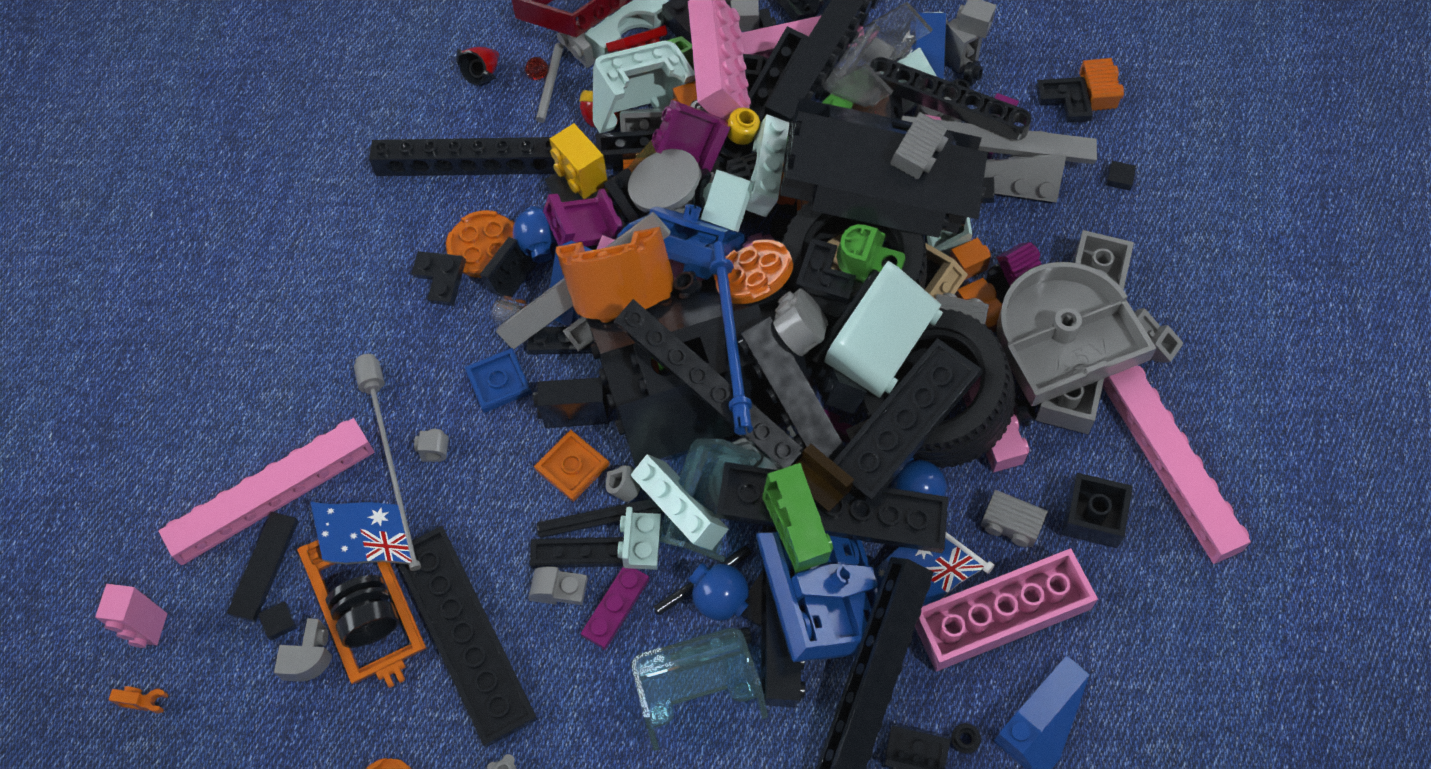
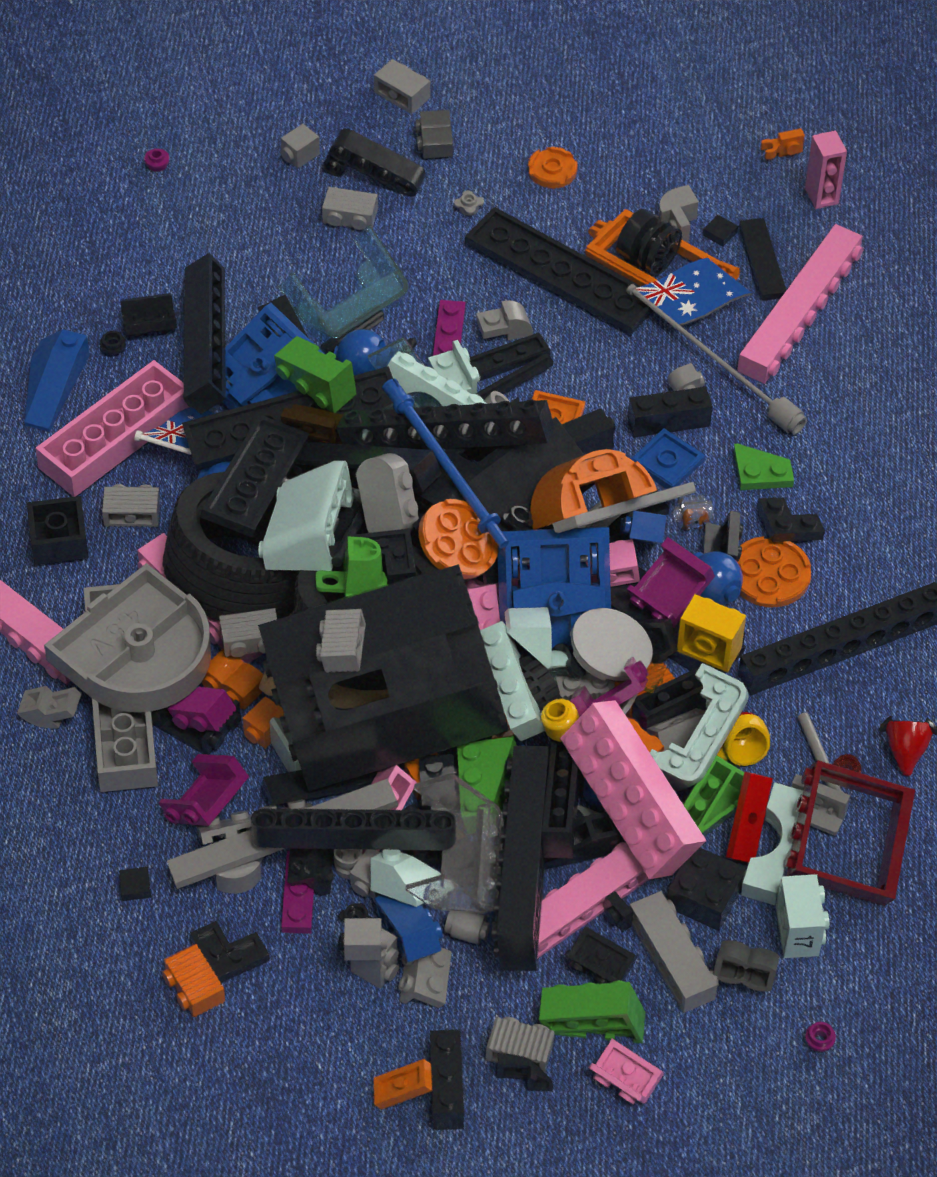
camera: 150 degrees right, 10 degrees down
(426, 338) = (761, 469): none -> bright green wing
(467, 416) = (669, 410): none -> black brick
(1046, 207) = (208, 795): none -> magenta panel

